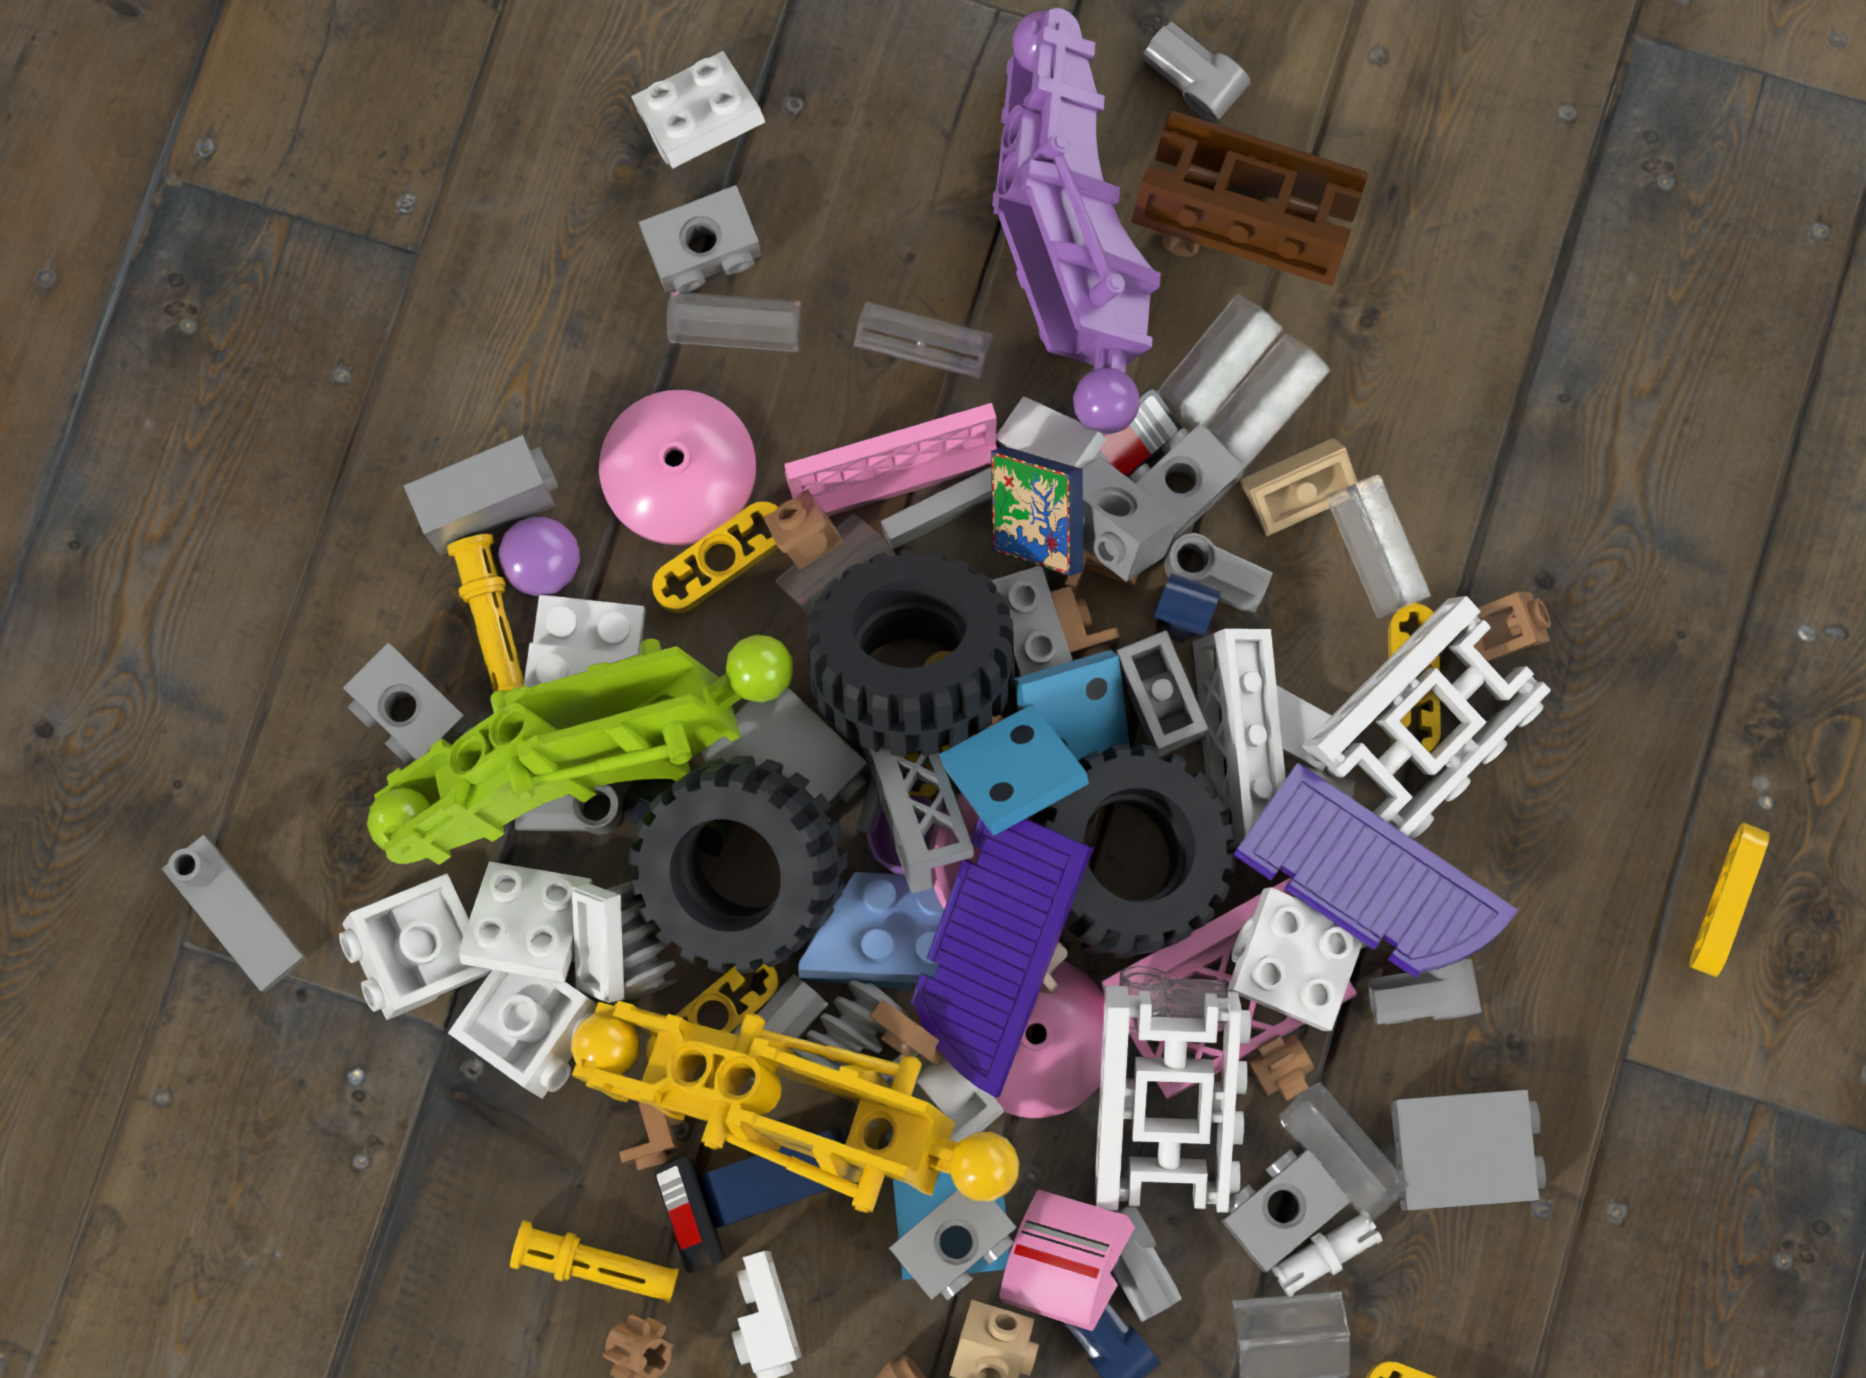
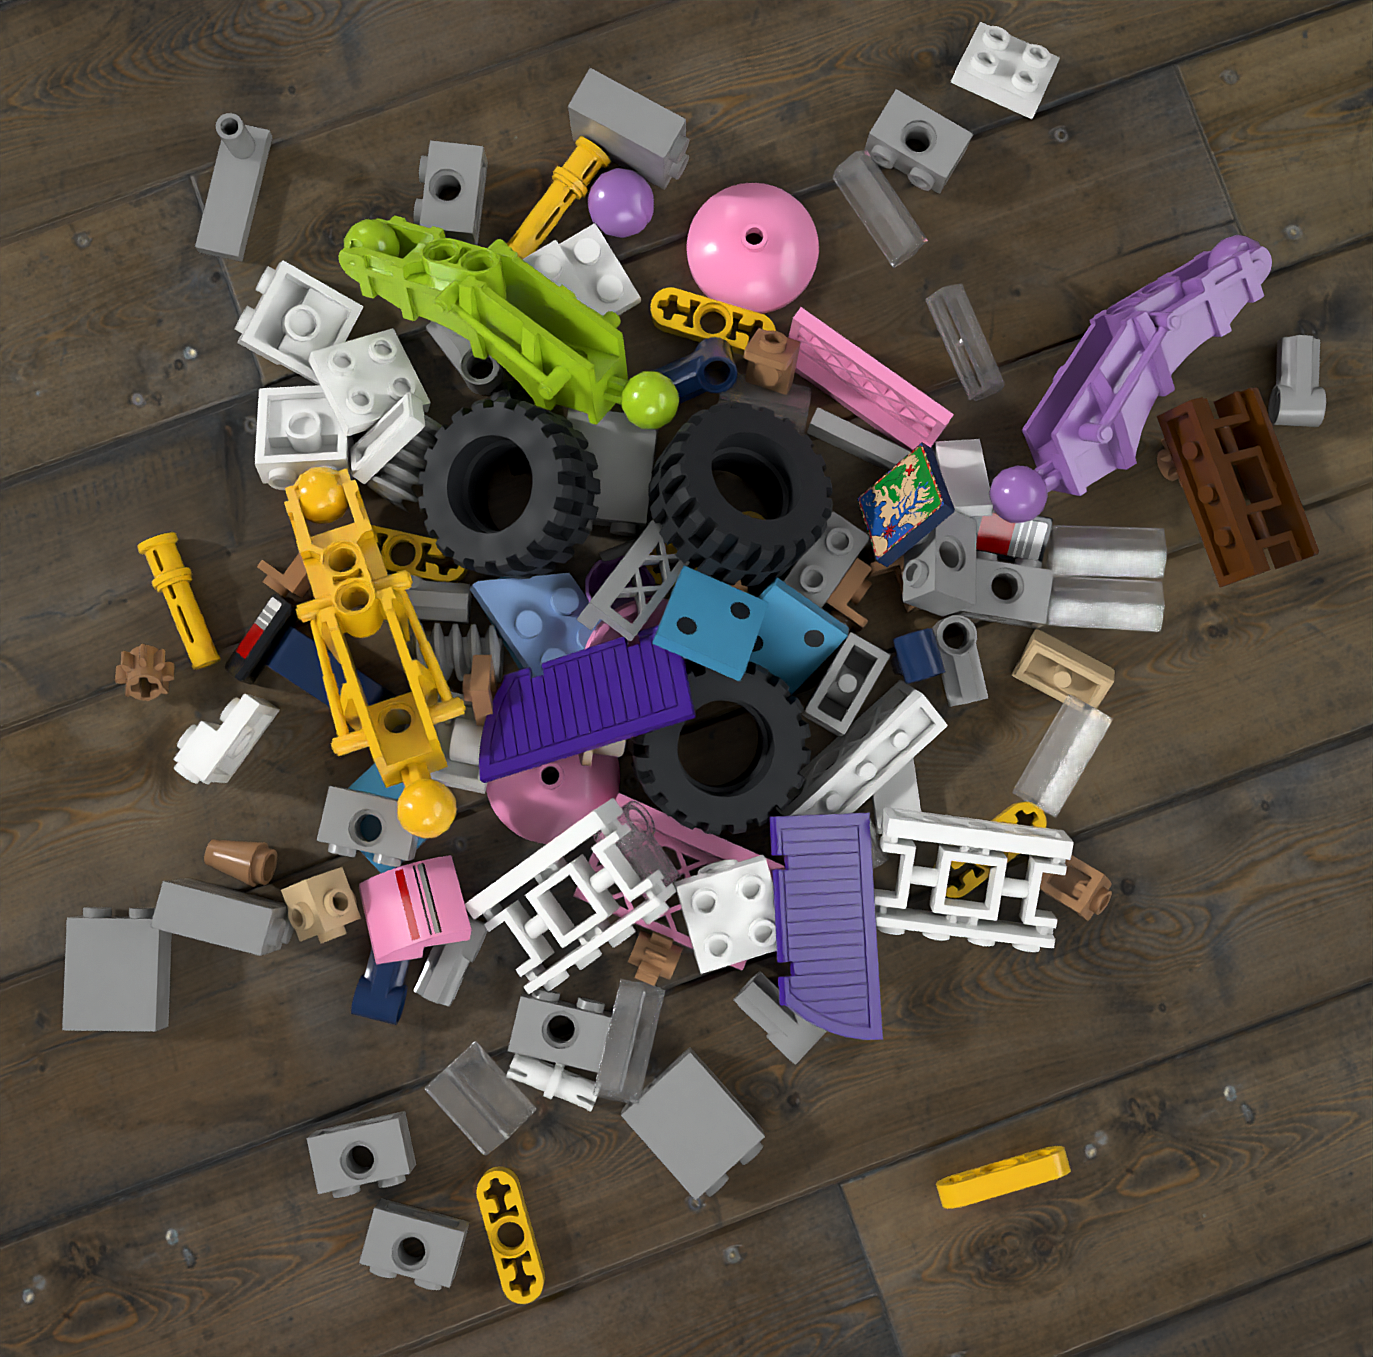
camera: 45 degrees right, 5 degrees up
(756, 610) = (694, 378): none -> dark blue piece

